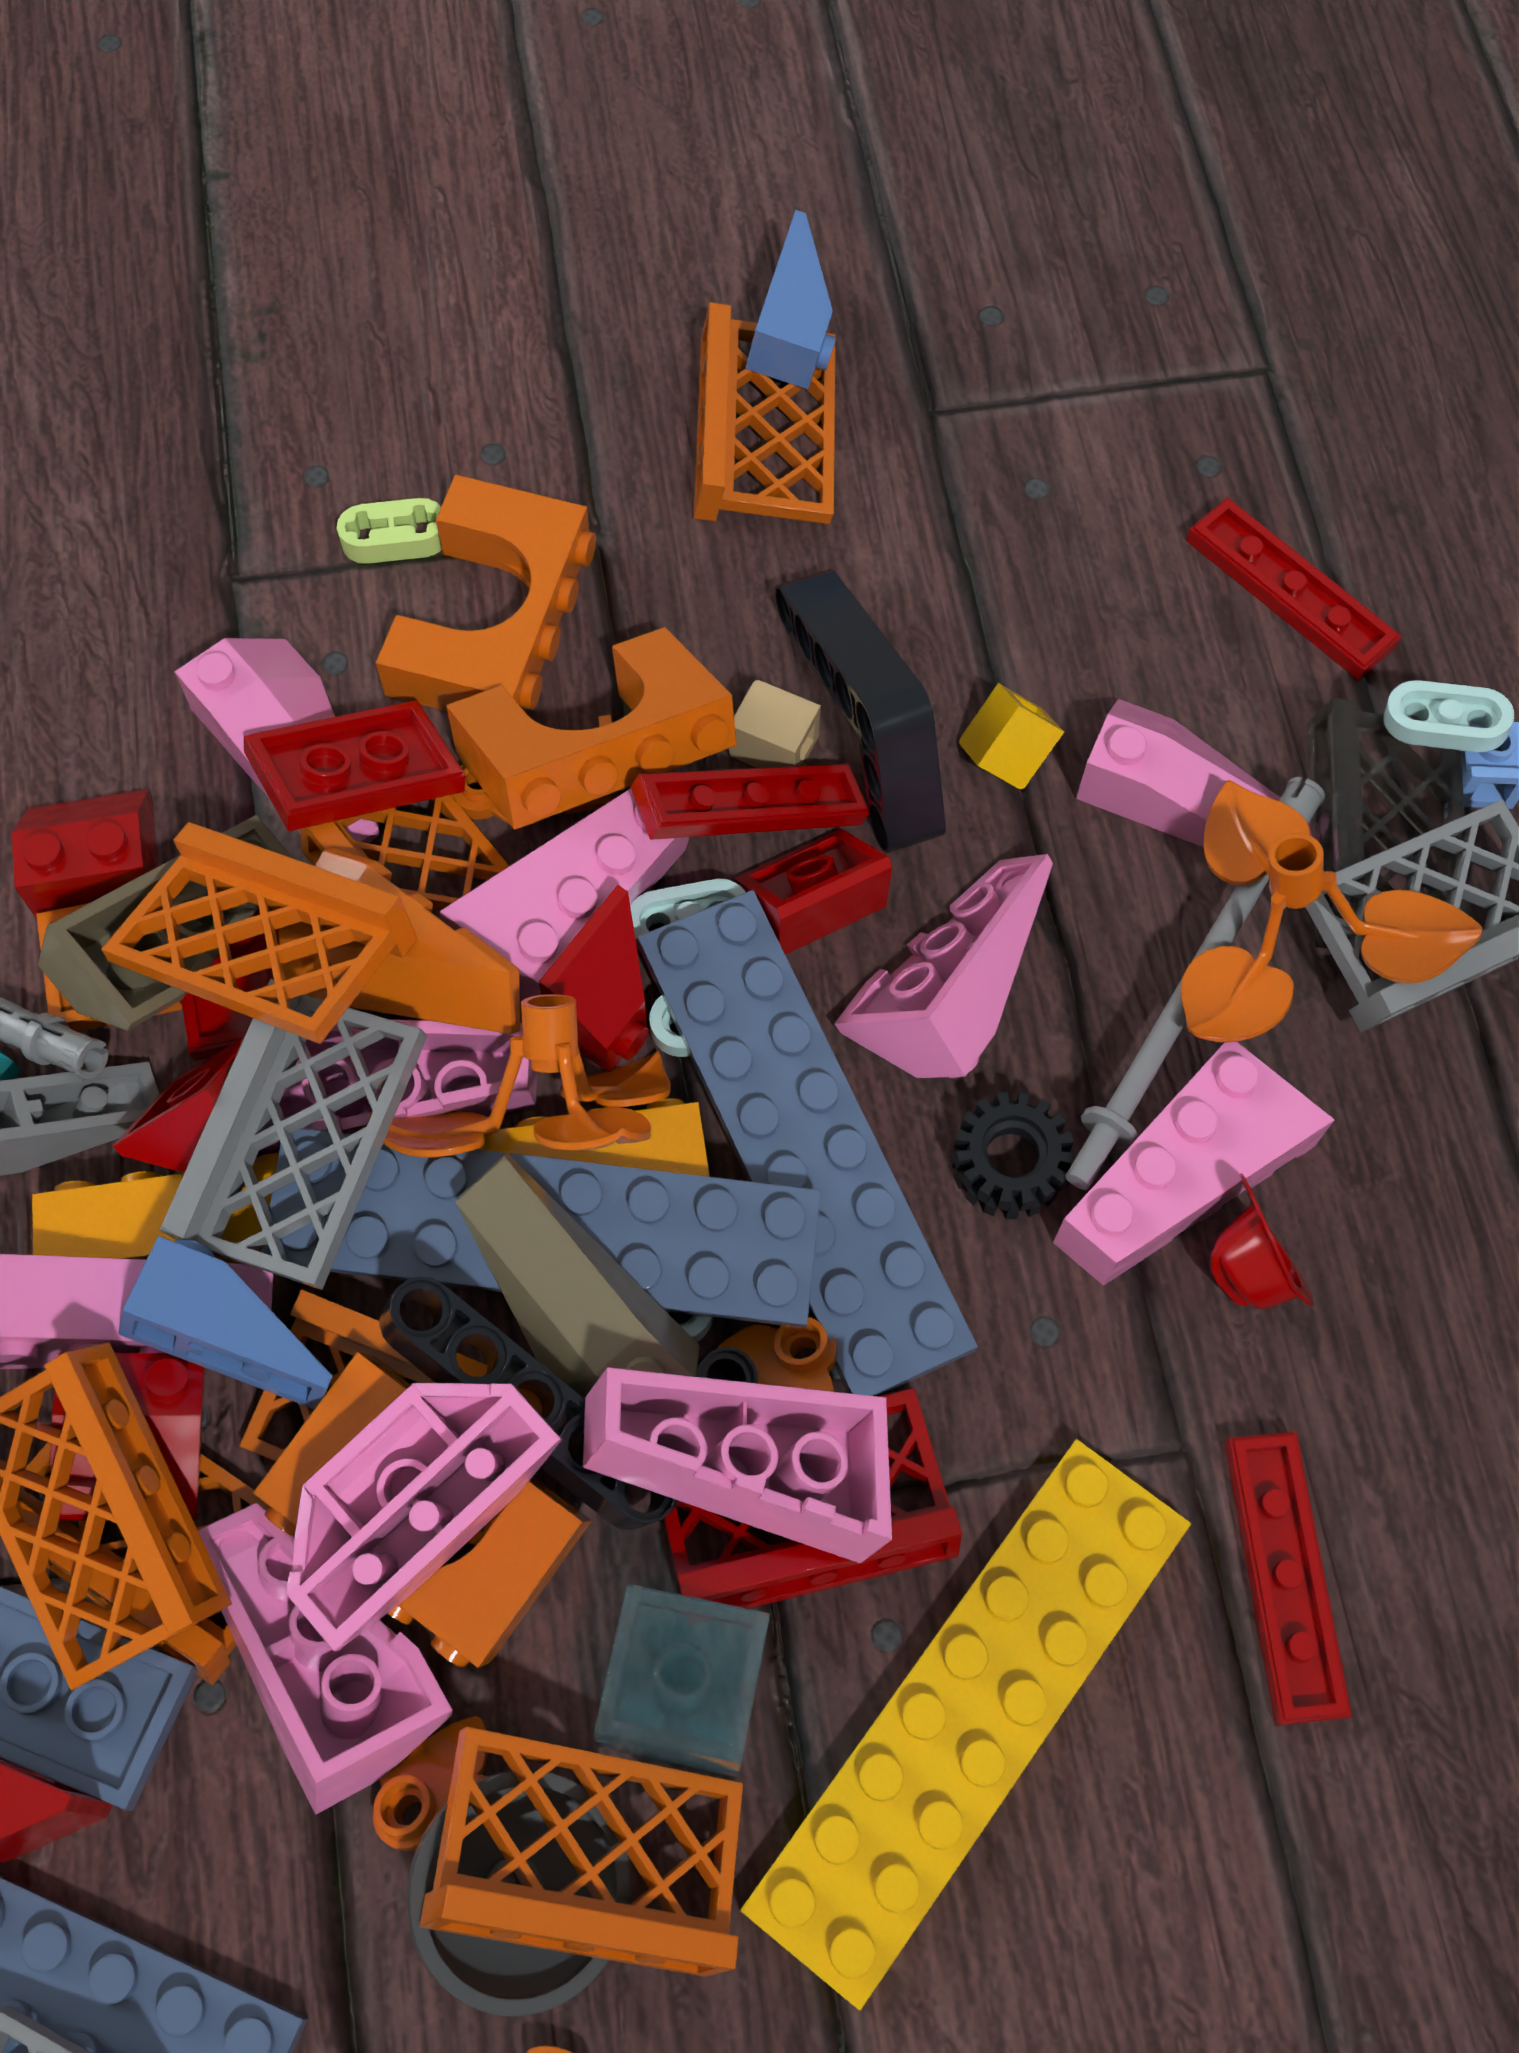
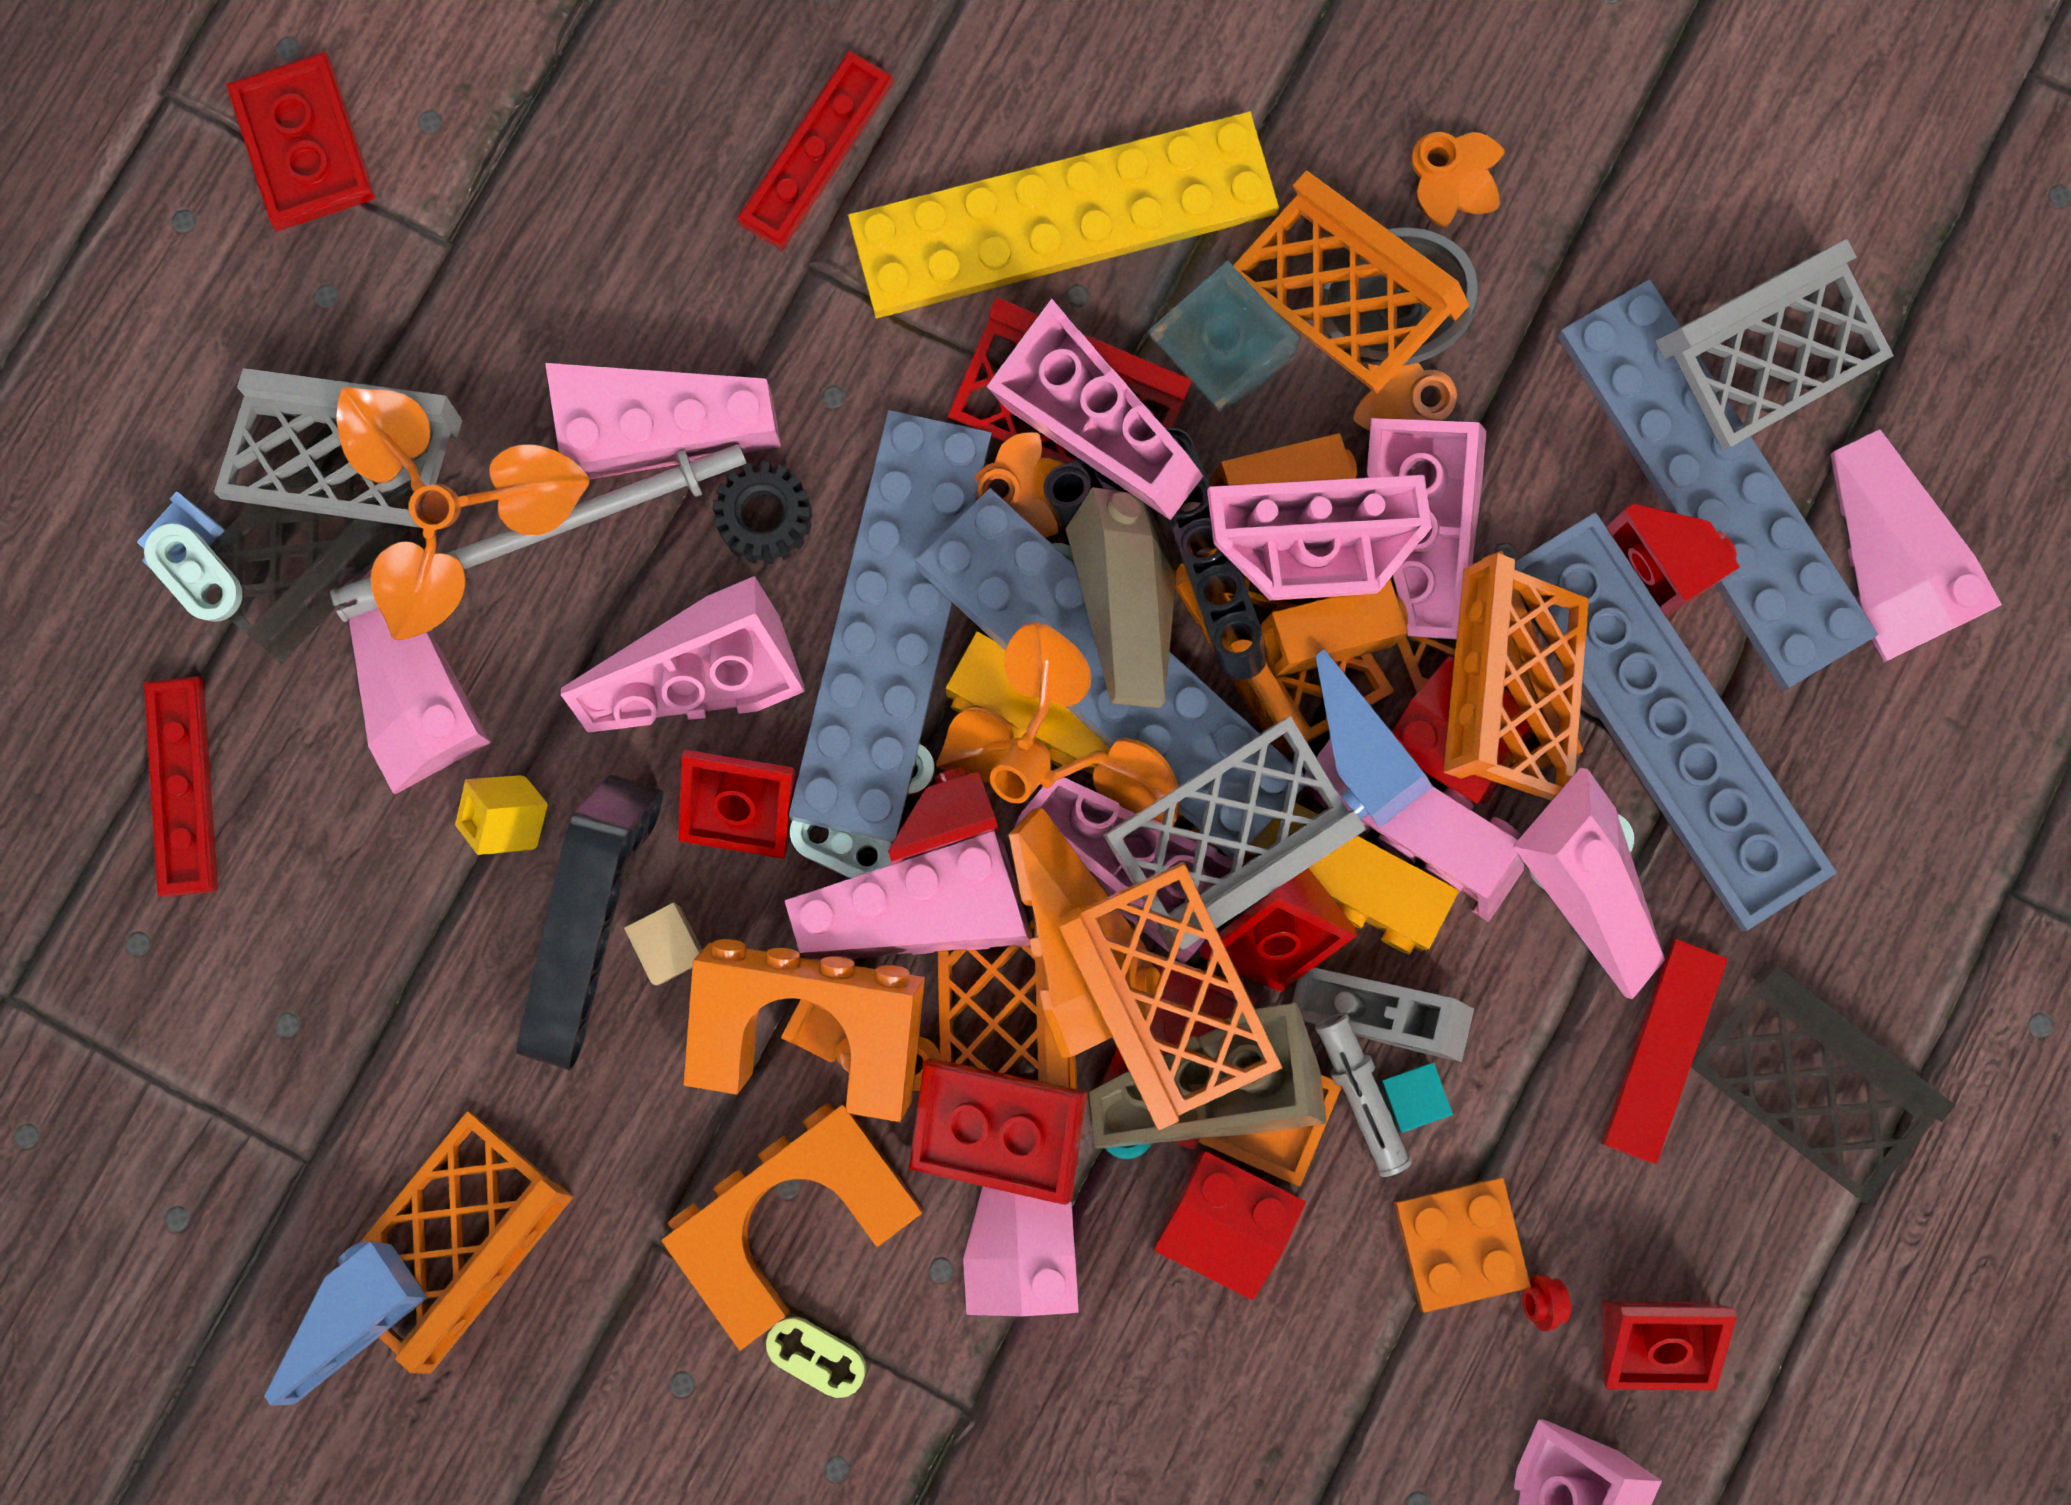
camera: 145 degrees left, 15 degrees up
(748, 800) = (736, 886): red tile -> none
(1254, 1264) = (669, 323): red piece -> none

